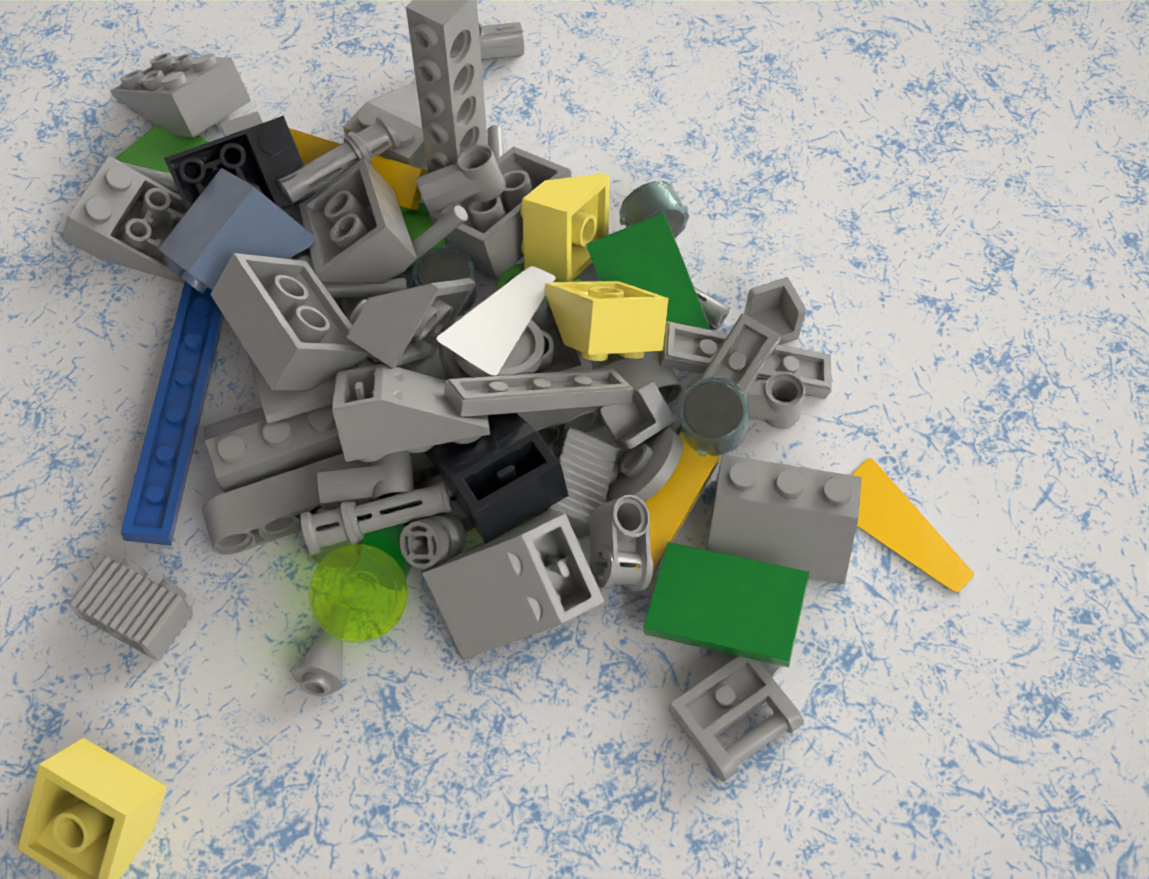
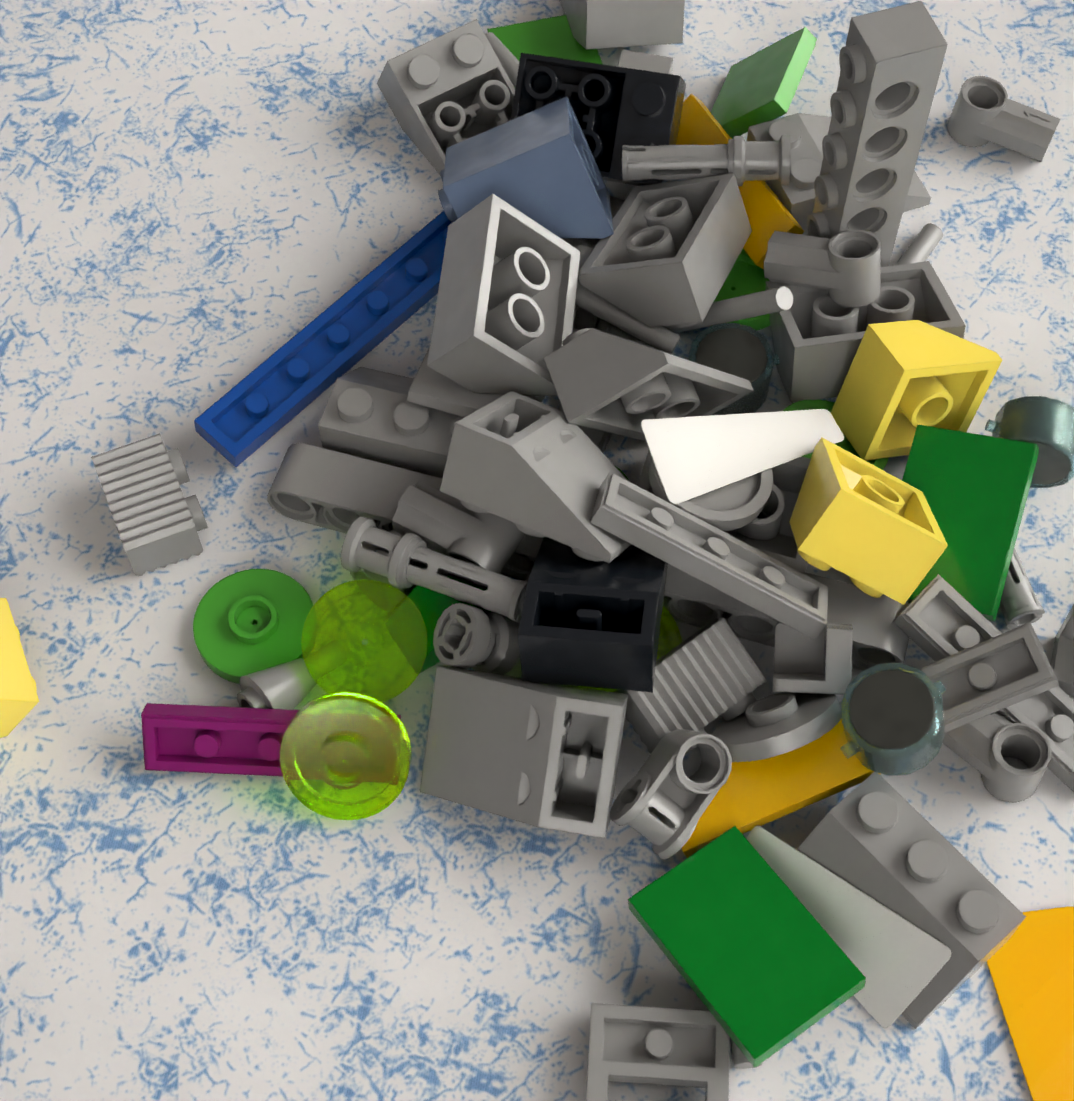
camera: 40 degrees right, 0 degrees up
(263, 656) = (226, 620): none -> bright green piece
(327, 96) = (763, 83): none -> bright green tile
(345, 698) = (214, 739): none -> magenta tile
(387, 657) = (351, 728): none -> clear neon green piece
(797, 547) = (880, 943): none -> white sticker

